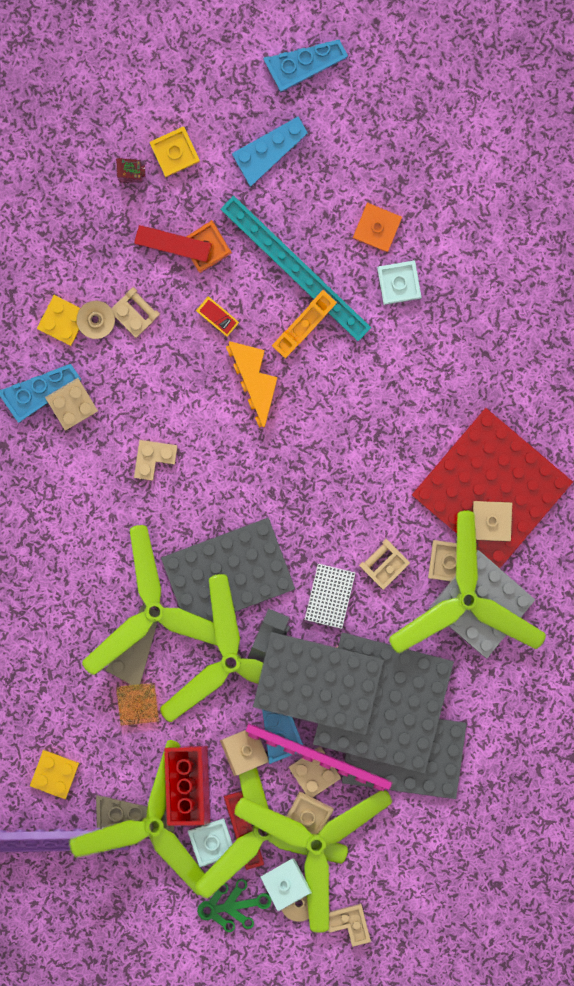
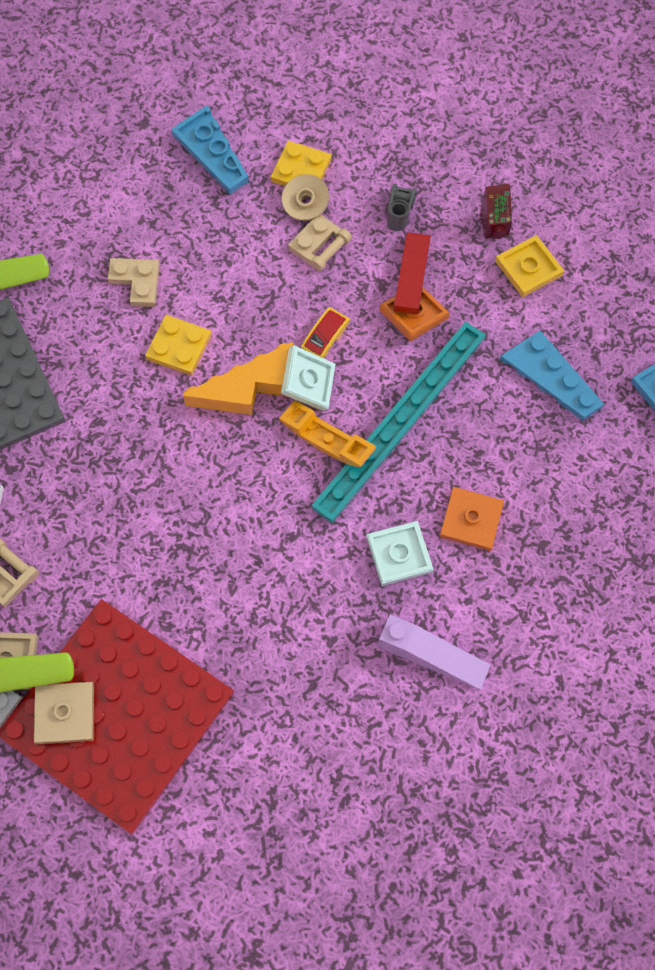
camera: 85 degrees right, 20 degrees down
(71, 404) = (198, 182): tan plate -> none
(106, 243) = (400, 207): none -> dark grey piece
(214, 429) = (178, 345): none -> yellow plate
(257, 333) = (308, 378): none -> light aqua plate
(474, 268) = (432, 652): none -> lavender slope

